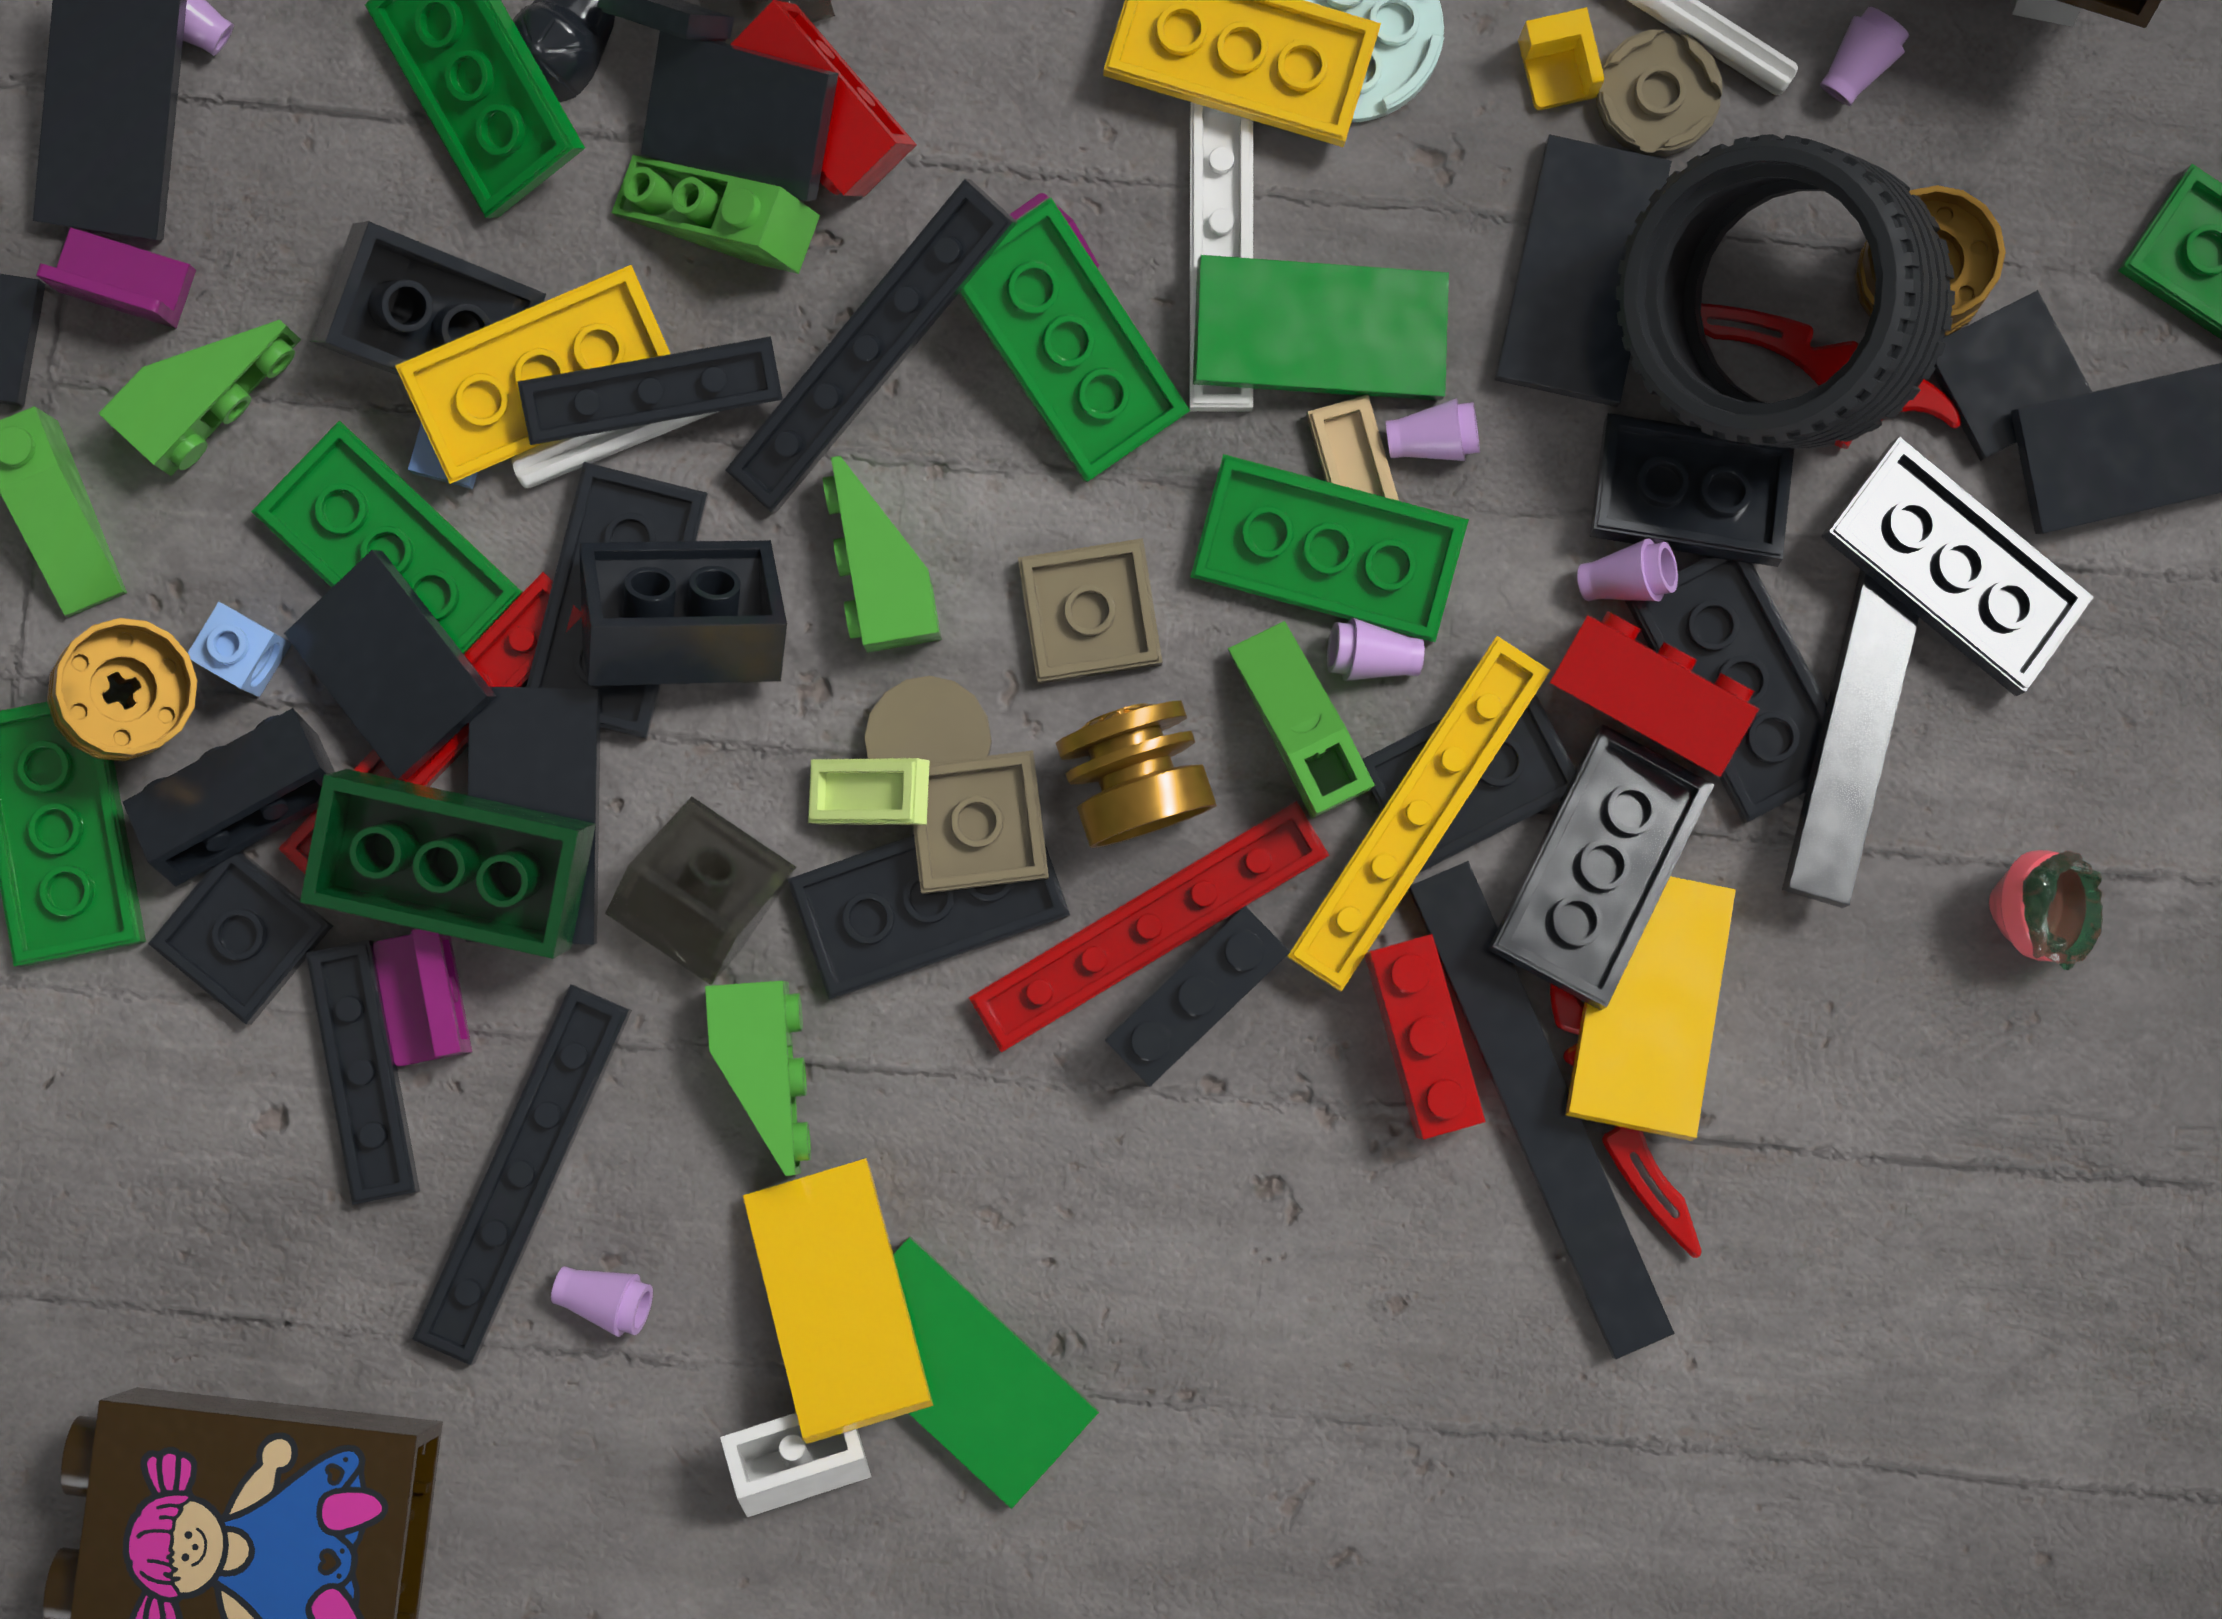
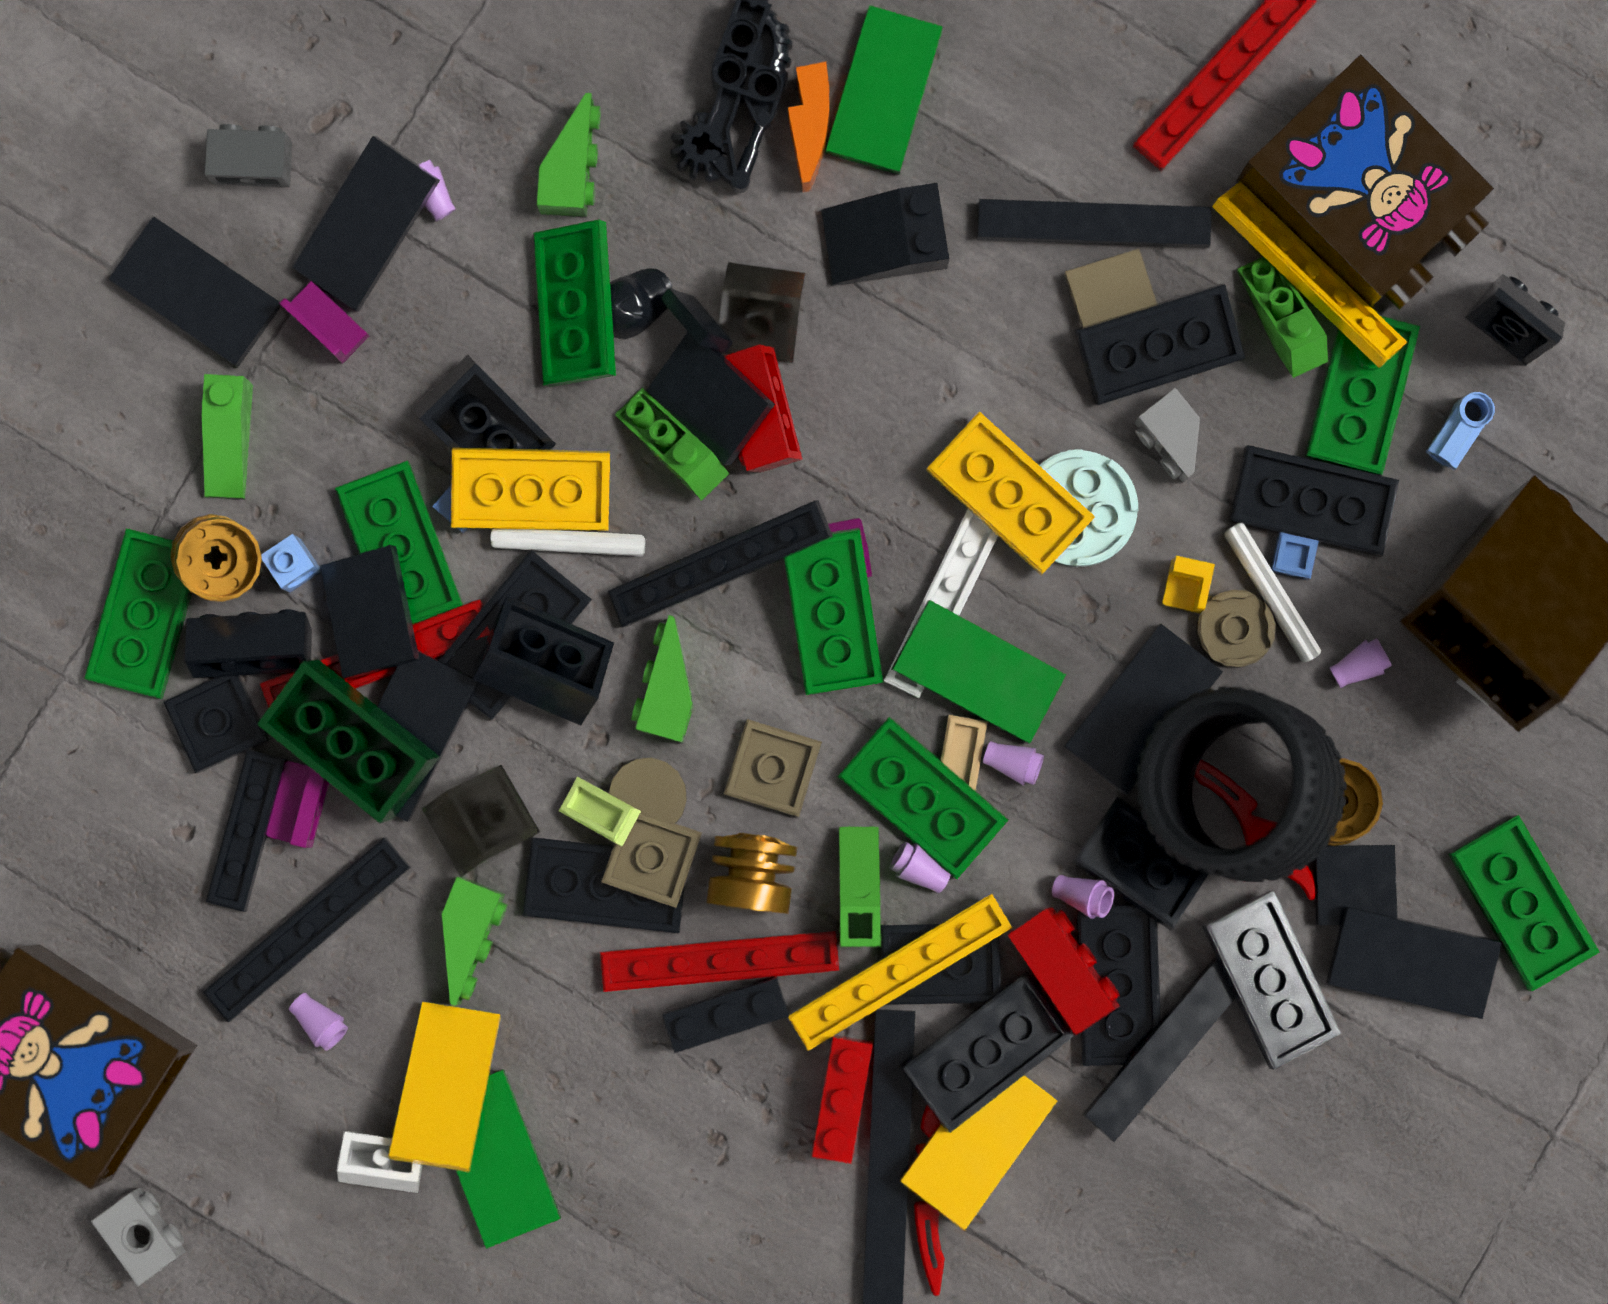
camera: 30 degrees right, 0 degrees up
(186, 397) = (327, 408): bright green slope -> none
(650, 390) = (586, 528): black tile -> none
(2050, 906) = (1228, 1197): hair -> none

